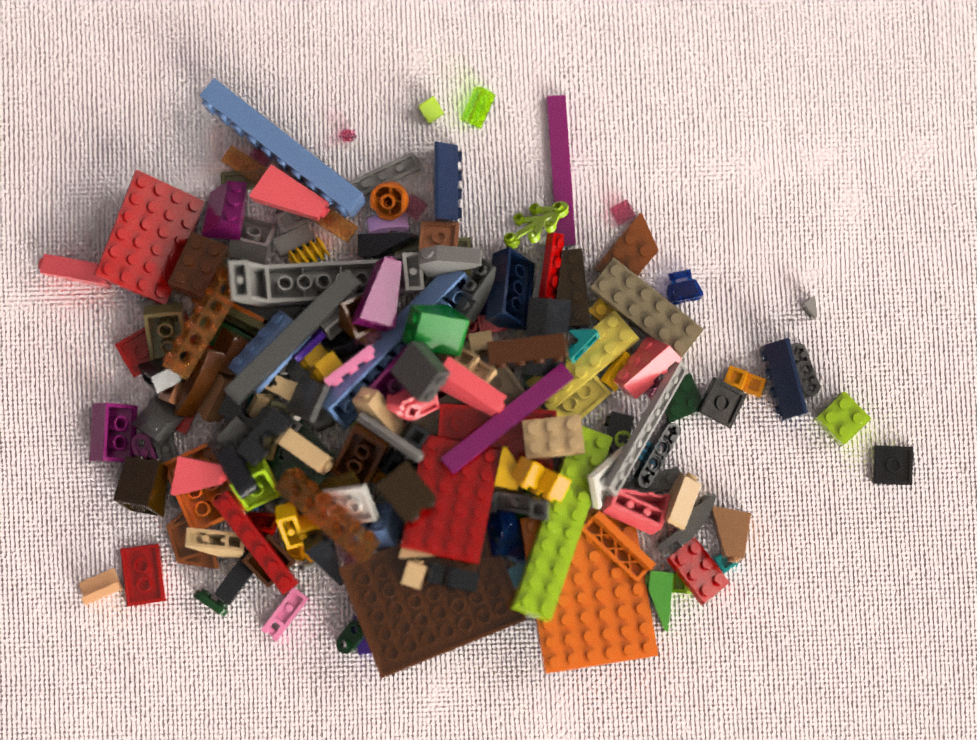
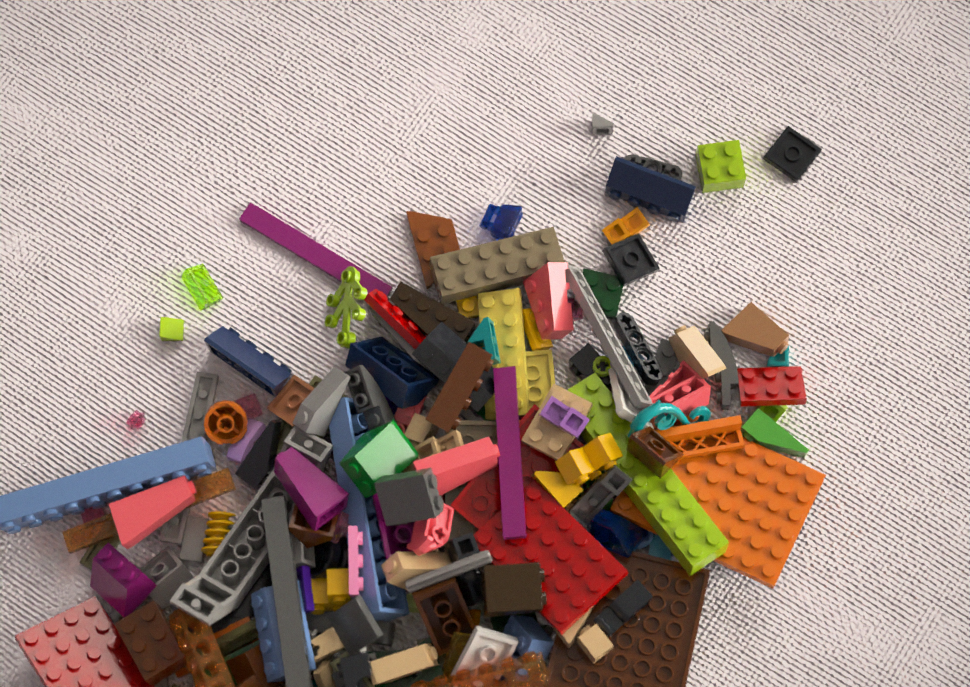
camera: 50 degrees left, 10 degrees down
(558, 439) = (564, 417): none -> medium lavender slope
(581, 521) = (653, 451): none -> reddish brown slope
(608, 512) = (664, 422): none -> teal plant
(622, 212) = (394, 227): clear pink plate -> none

